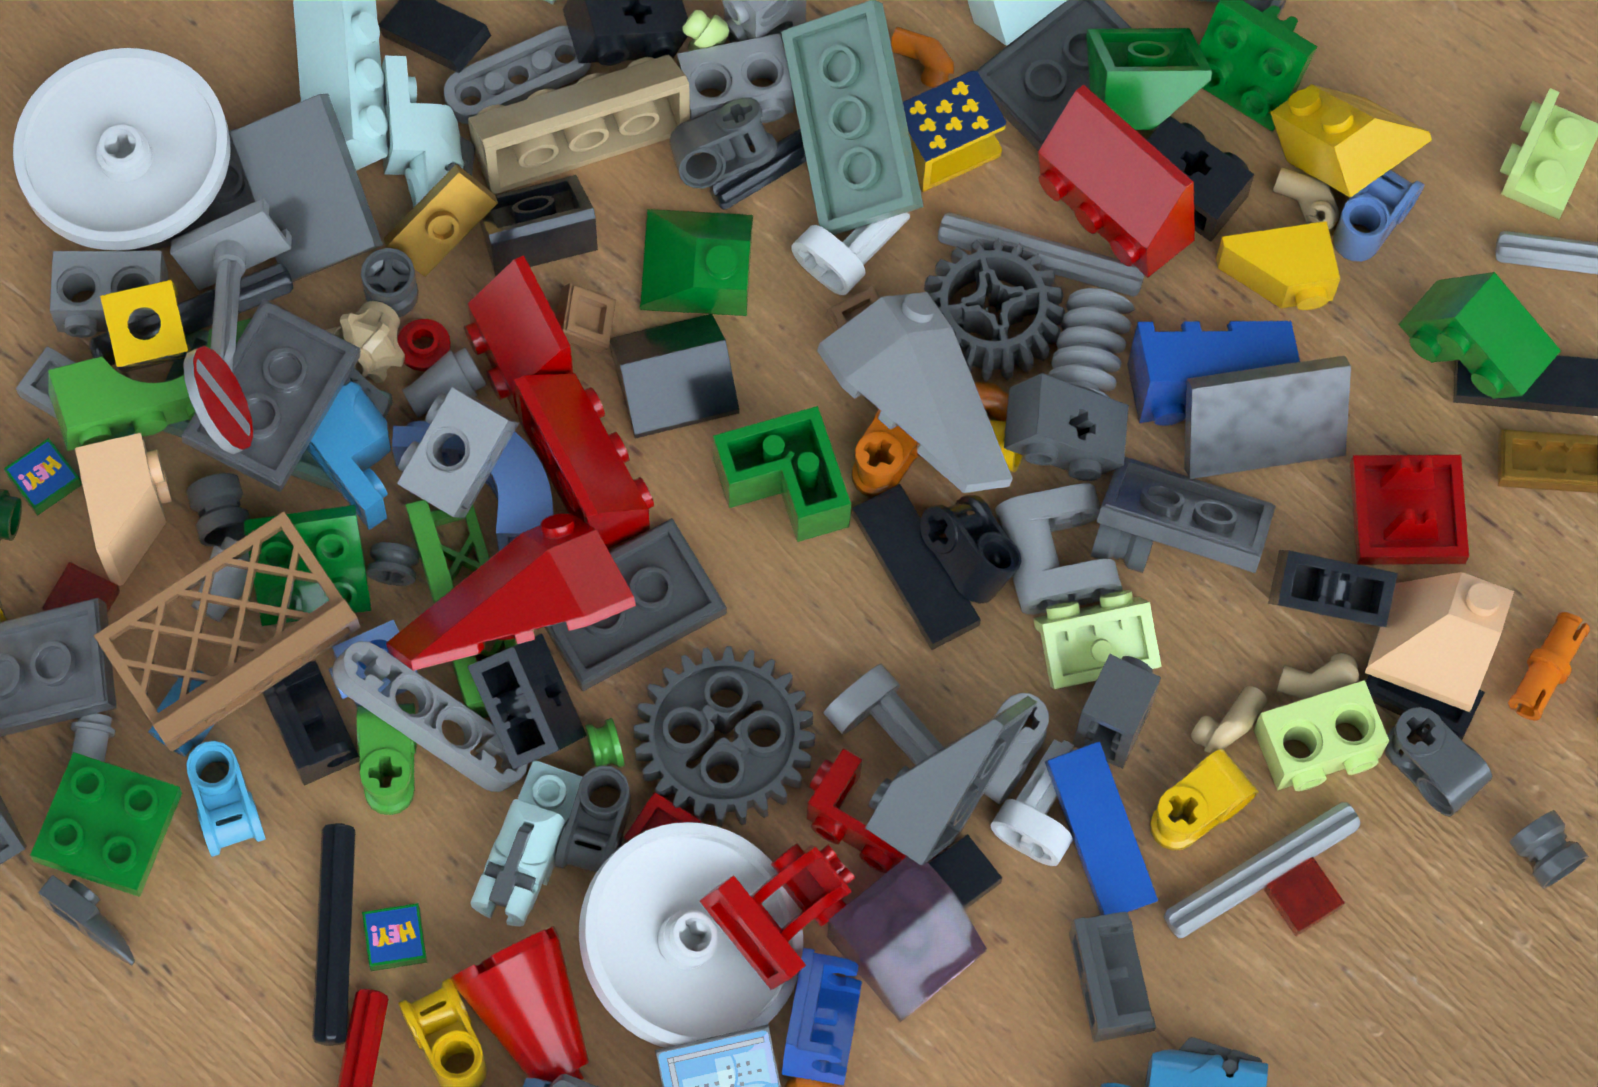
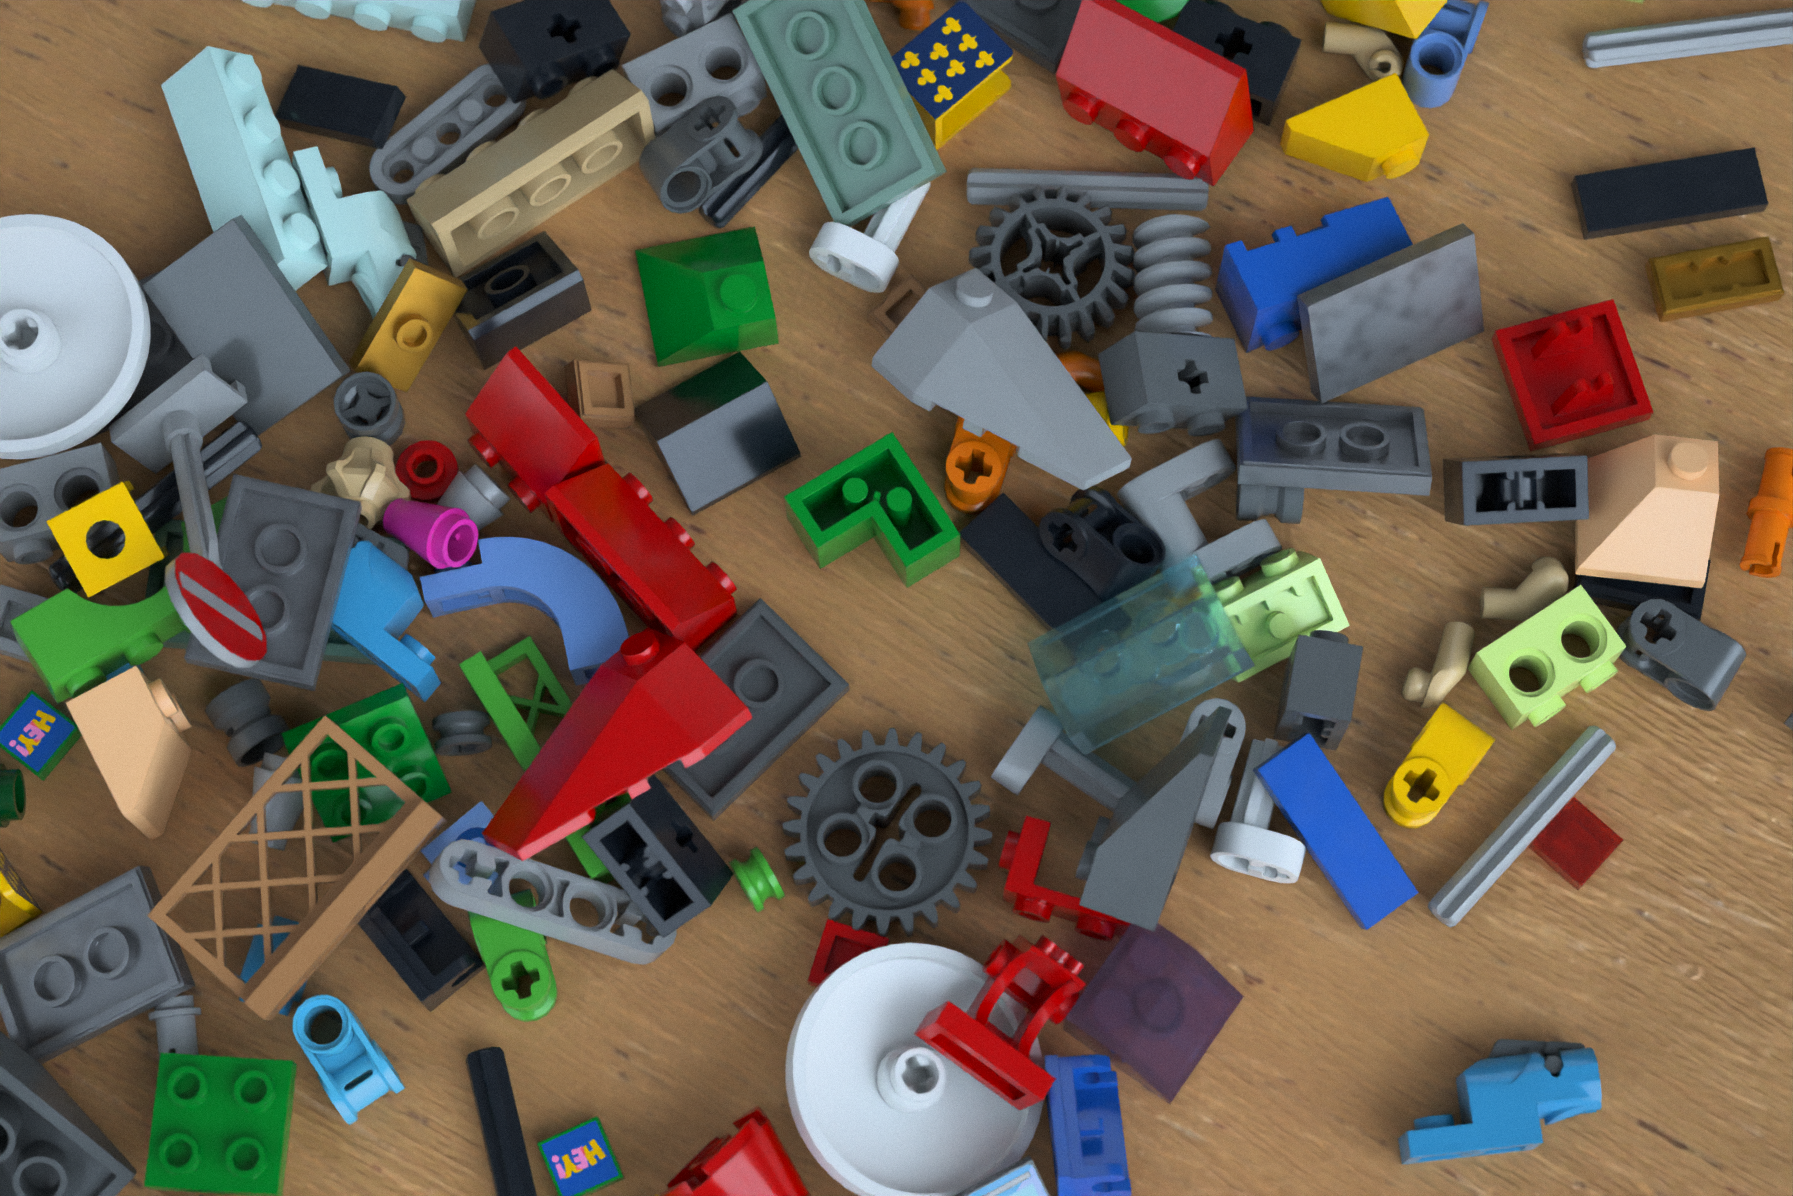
camera: 10 degrees left, 5 degrees up
(79, 586) = (114, 854): clear red tile -> none
(410, 388) = (434, 532): none -> dark pink cone
(485, 438) = (527, 563): light grey brick -> none
(527, 844) = (703, 1014): light aqua plate -> none
(592, 831) = (771, 977): dark grey piece -> none
(705, 31) = (646, 31): yellowish green arm -> none
(966, 871) = (1197, 915): black tile -> none
(974, 643) = (1139, 655): none -> clear light blue slope
(1111, 976) = (1389, 993): dark grey hinge -> none
(1483, 328) = (1600, 149): green brick -> none

